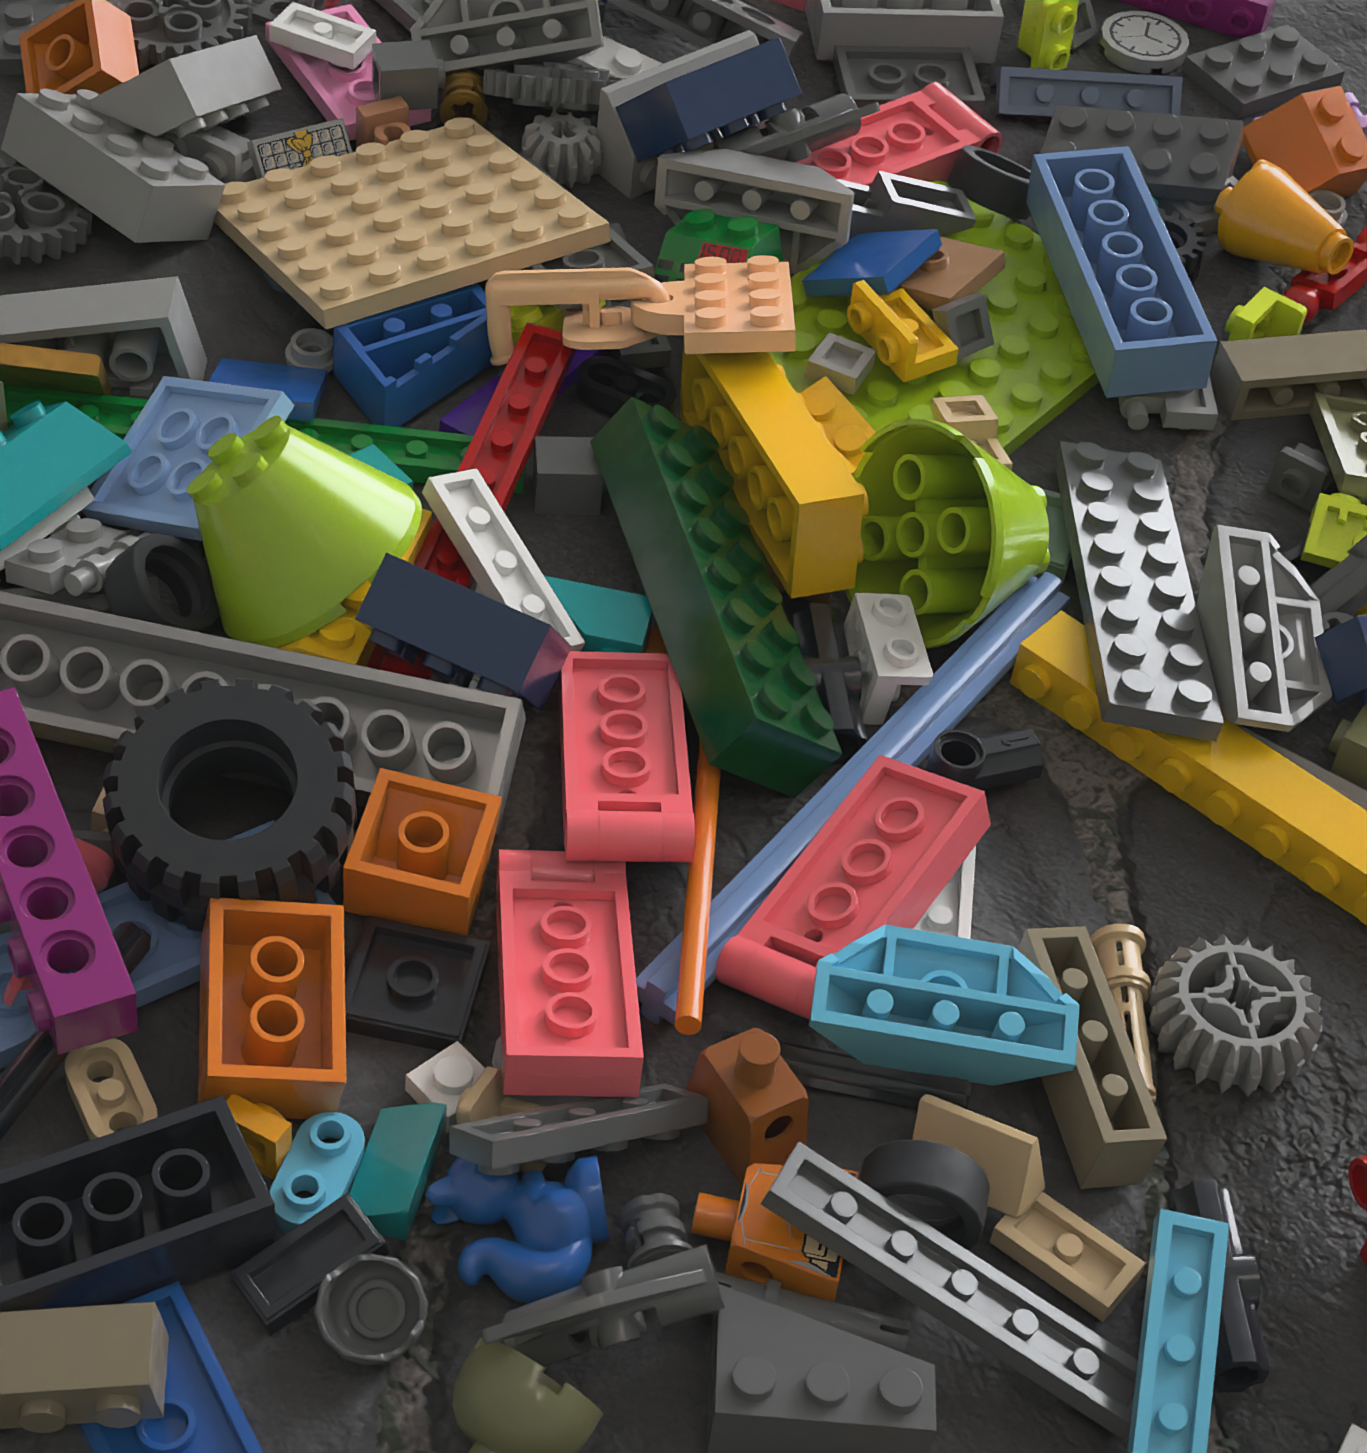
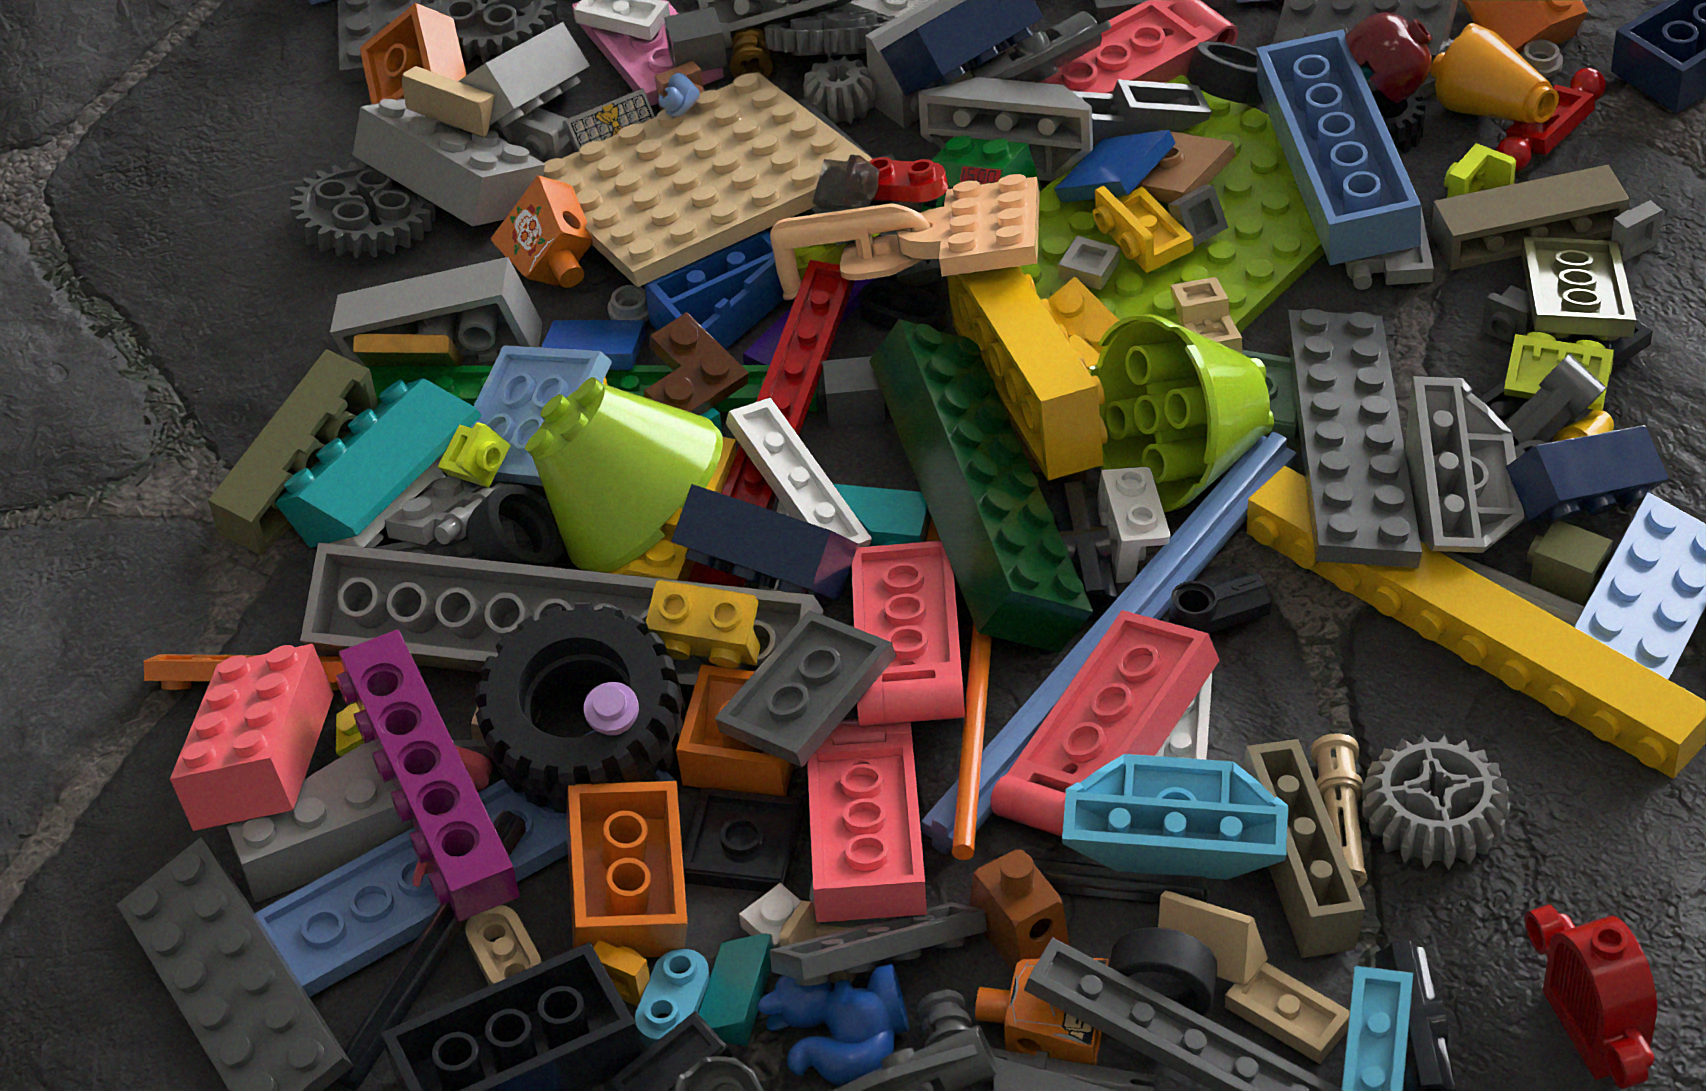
camera: 10 degrees right, 0 degrees up
(120, 97) = (447, 100): none -> tan slope
(120, 495) = (474, 454): none -> neon yellow bracket
(221, 260) = (546, 234): none -> orange torso
(273, 809) = (611, 708): none -> lavender plate
(385, 131) = (680, 95): none -> medium blue arm
(391, 718) = (704, 623): none -> yellow bracket
(395, 427) = (700, 367): none -> reddish brown plate
(507, 809) = (805, 688): none -> dark grey plate
(576, 241) = (846, 184): none -> clear smoke bracket
(639, 246) = (909, 180): none -> red plate
(1181, 178) = (1392, 52): none -> dark red cylinder

